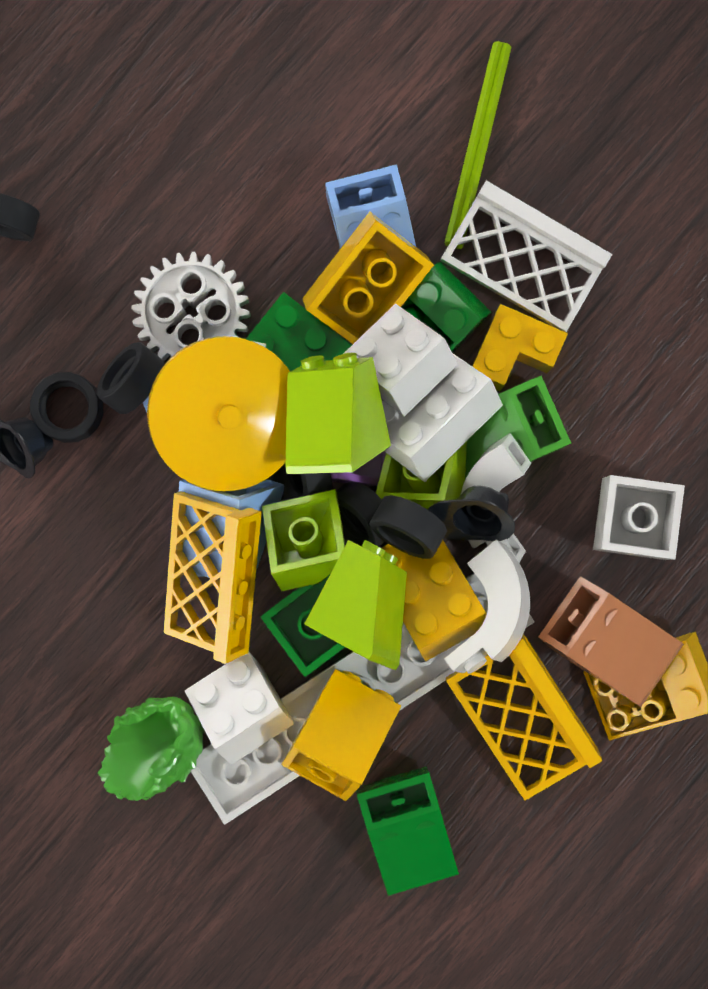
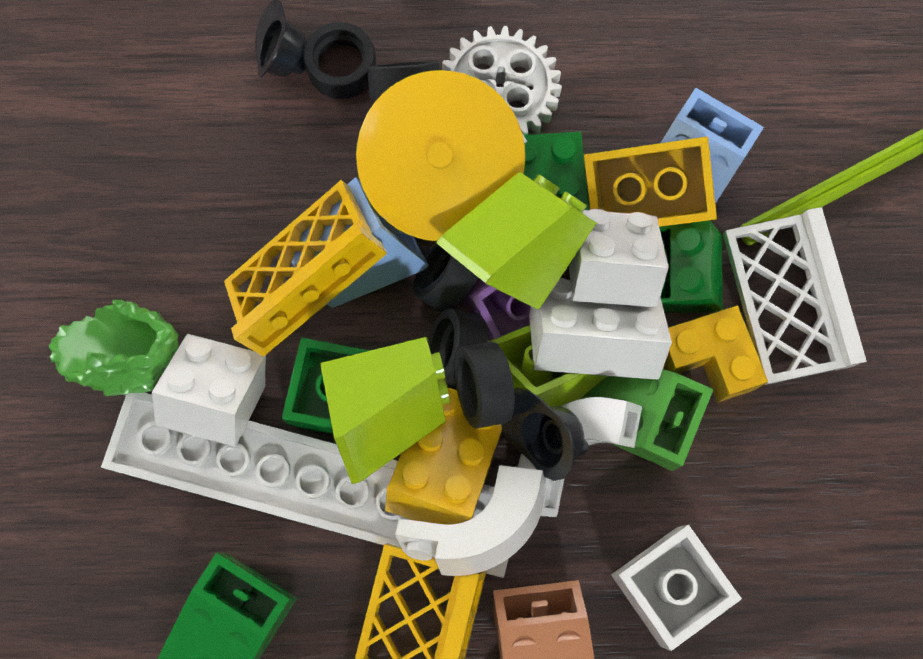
camera: 50 degrees right, 10 degrees down
(303, 538) = (394, 309): lime slope -> none
(342, 734) = (259, 492): yellow slope -> none

